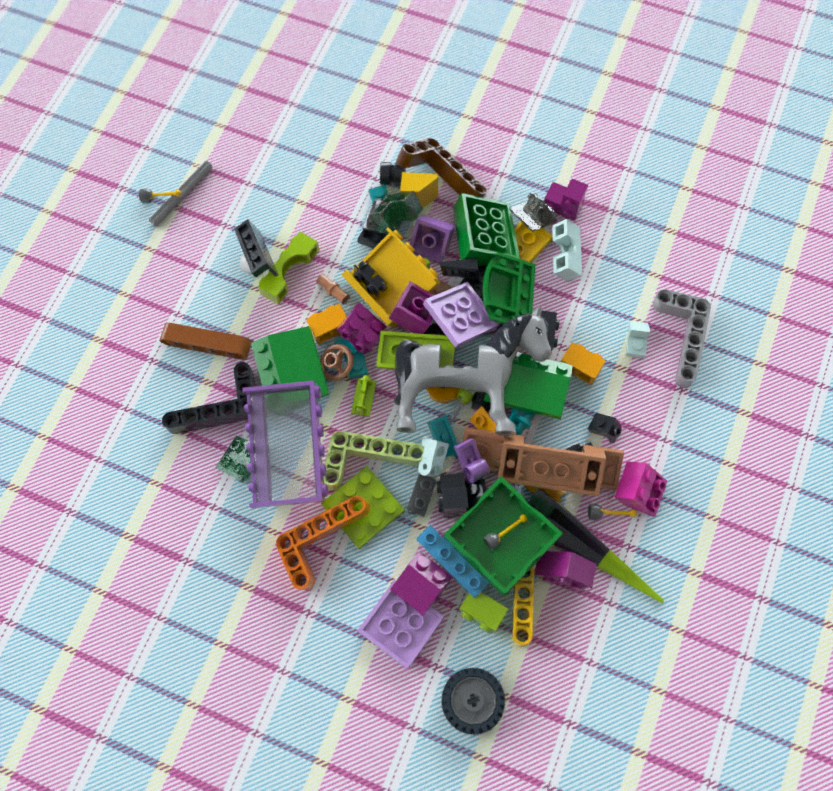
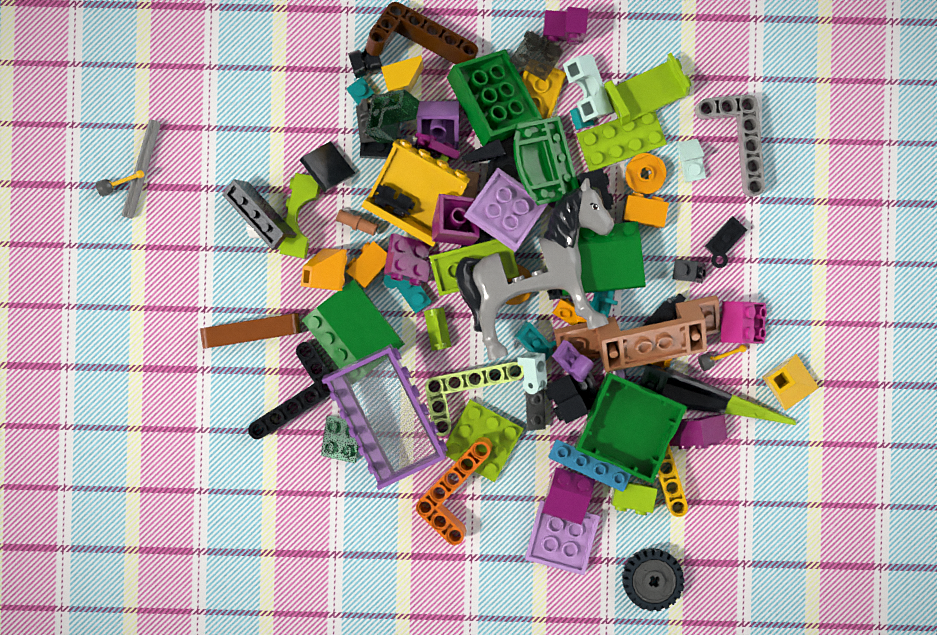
camera: 20 degrees left, 20 degrees up
(288, 314) = (325, 270): none -> light orange slope
(327, 237) = (327, 166): none -> black tile
(328, 358) = (387, 307): nougat piece -> none
(421, 248) = (429, 142): none -> magenta hinge
(463, 397) = (538, 296): lime hinge -> none
(494, 540) = (623, 433): hinge -> none
(549, 273) = (577, 120): none -> teal plate
(582, 301) = (615, 143): none -> lime plate
(595, 324) = (656, 178): none -> light orange plate
(618, 271) = (648, 90): none -> lime panel
(646, 412) = (724, 240): none -> black hinge
(669, 559) = (790, 382): none -> yellow slope

